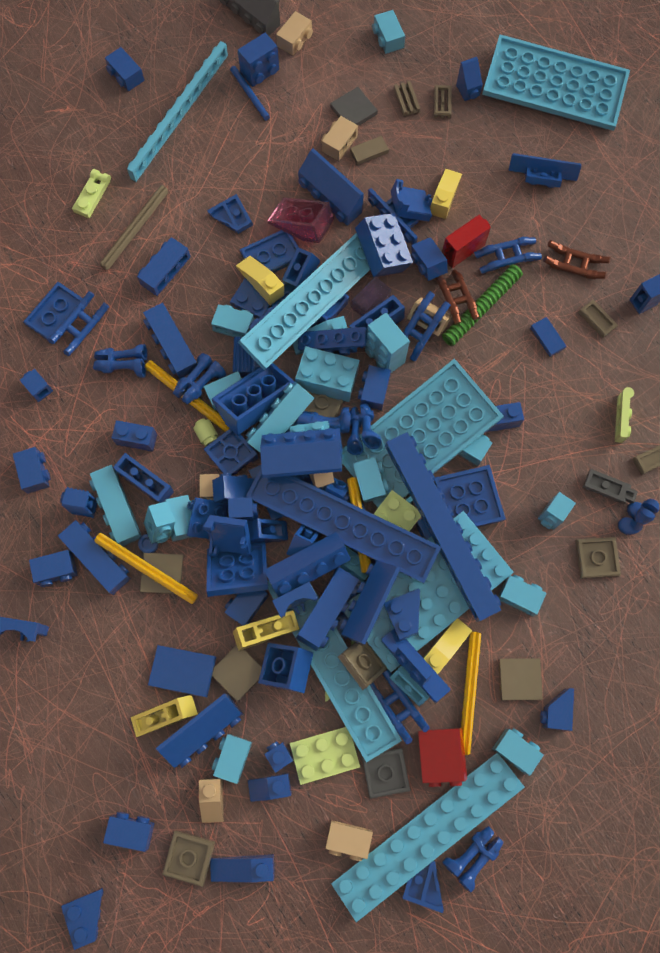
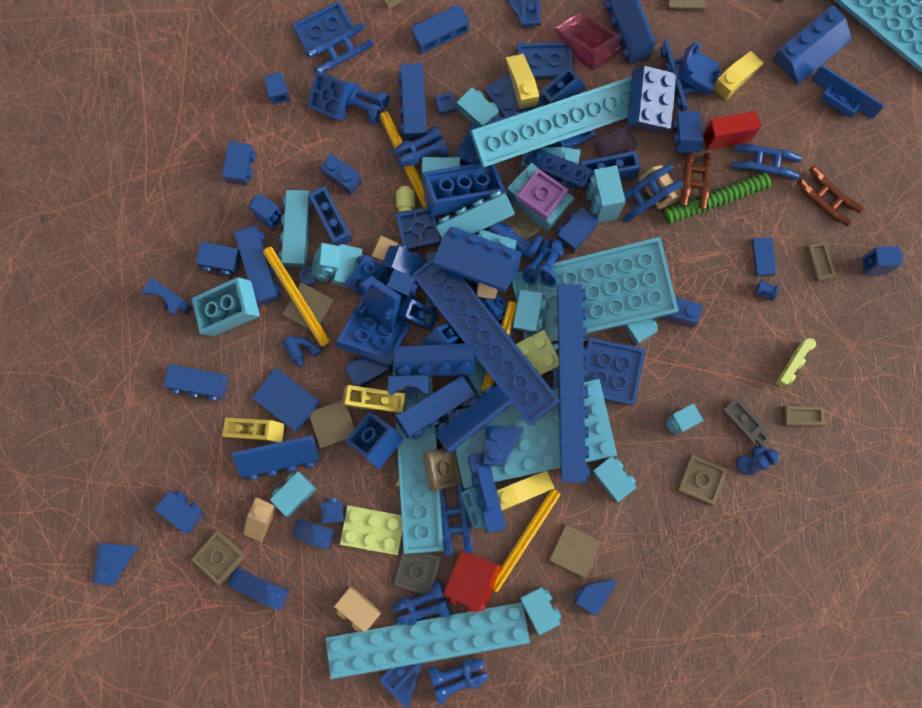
camera: 30 degrees right, 5 degrees up
(82, 610) = (225, 307): none -> medium azure brick
(86, 697) = (196, 382): none -> blue brick
(89, 369) = (329, 95): none -> blue piece
(167, 620) = (294, 351): none -> blue plant
(200, 330) = (445, 103): none -> blue tile
(329, 369) = (542, 194): none -> medium lavender tile
(403, 817) = (411, 603): none -> blue piece
(496, 141) = (814, 45): none -> blue slope
(566, 364) = (767, 290): none -> blue bush

